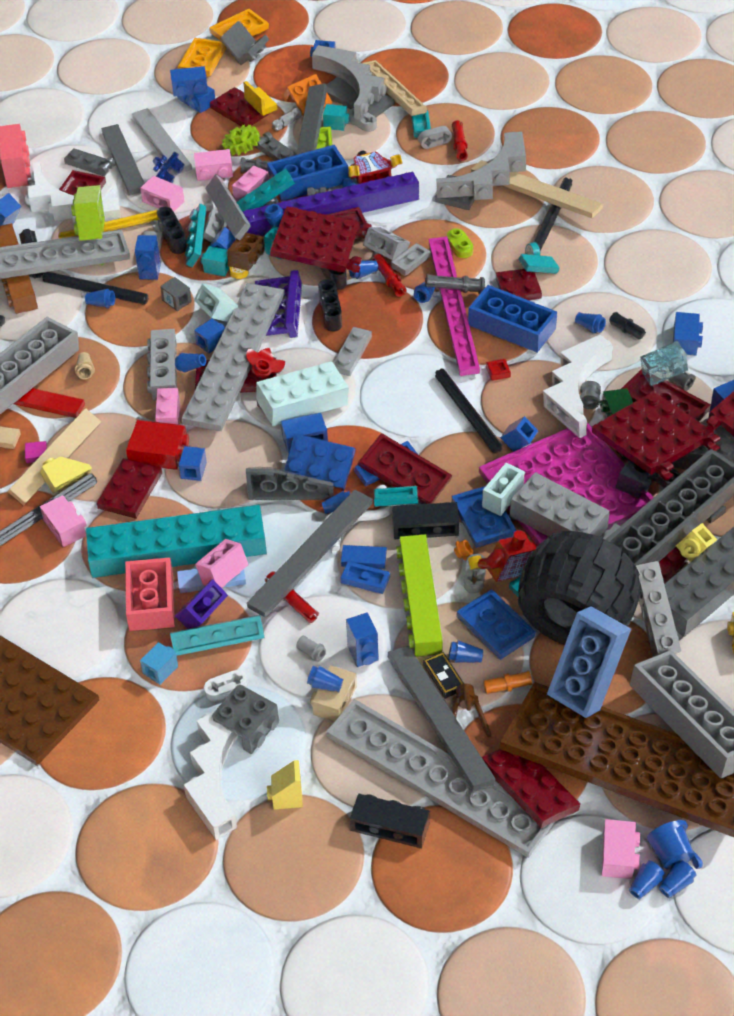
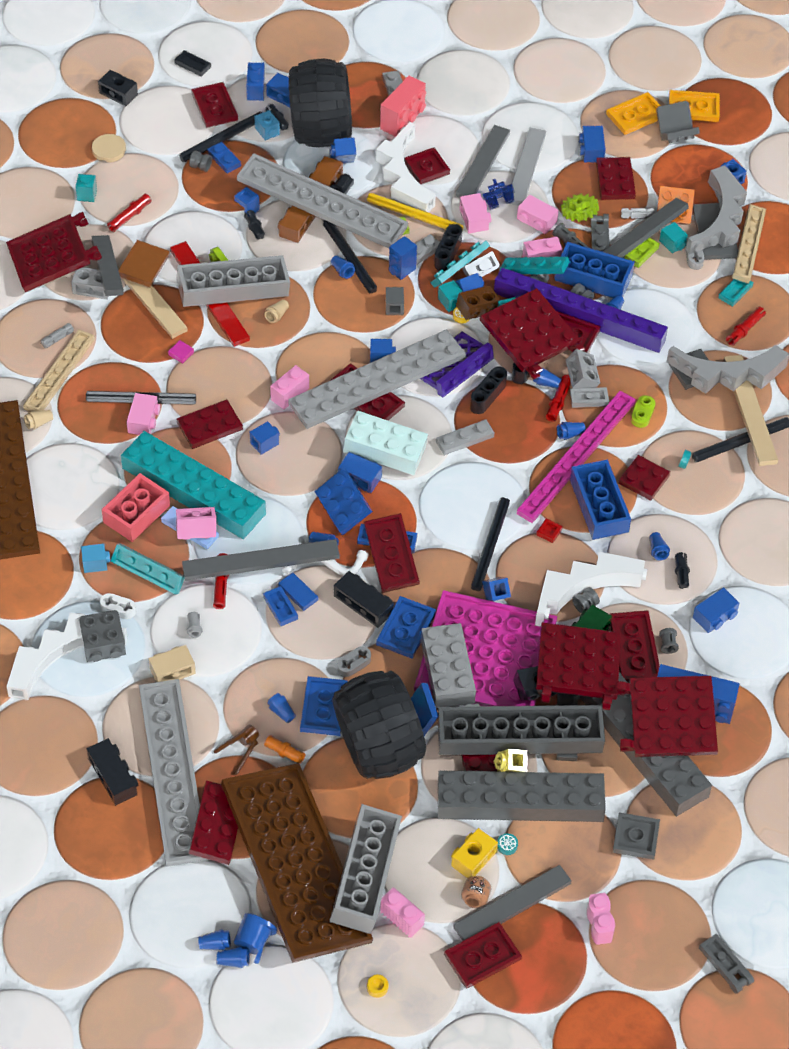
camera: 40 degrees right, 5 degrees up
(63, 446) = (187, 364): tan tile -> none
(63, 472) = (176, 380): light yellow slope -> none
(89, 162) = (456, 148): dark grey plate -> none
(89, 213) = (392, 193): lime brick -> none
(157, 444) = (257, 405): red brick -> none
(162, 360) = (327, 348): light grey brick -> none
(187, 361) = (340, 360): blue cone -> none
(189, 81) = (589, 130): blue brick -> none
(201, 605) = (157, 540): dark purple slope -> none
(215, 302) = (409, 328): light aqua brick -> none
(228, 207) = (501, 257): light grey tile -> none
(259, 99) = (630, 183): yellow panel -> none
(264, 363) = (390, 398): red plate -> none
(274, 214) = (520, 287): blue cone -> none
(277, 484) = (296, 493): dark grey wedge -> none
(286, 787) = (76, 700): light yellow slope -> none
(323, 679) = (165, 647): blue cone -> none
(362, 639) = (223, 644): blue brick -> none
(372, 166) = (645, 300): torso -> none
(395, 496) = (360, 566): teal tile -> none
(420, 595) = (299, 646): lime brick -> none
(434, 137) = (729, 309): light grey beam -> none
(441, 719) = (214, 735): dark grey tile -> none
(443, 674) = (254, 710): tile -> none
(463, 549) = (364, 639): orange plate -> none
(464, 284) = (598, 446): dark grey pin -> none
(502, 488) = (429, 616): light aqua brick -> none
(507, 557) = (375, 661): red torso -> none
(539, 263) = (676, 472): teal tile -> none
(588, 661) = (323, 774): medium blue brick -> none
(619, 849) = (221, 908): bright pink brick -> none
(656, 610) = (423, 781): light grey brick -> none
(664, 363) = (657, 618): clear light blue brick -> none

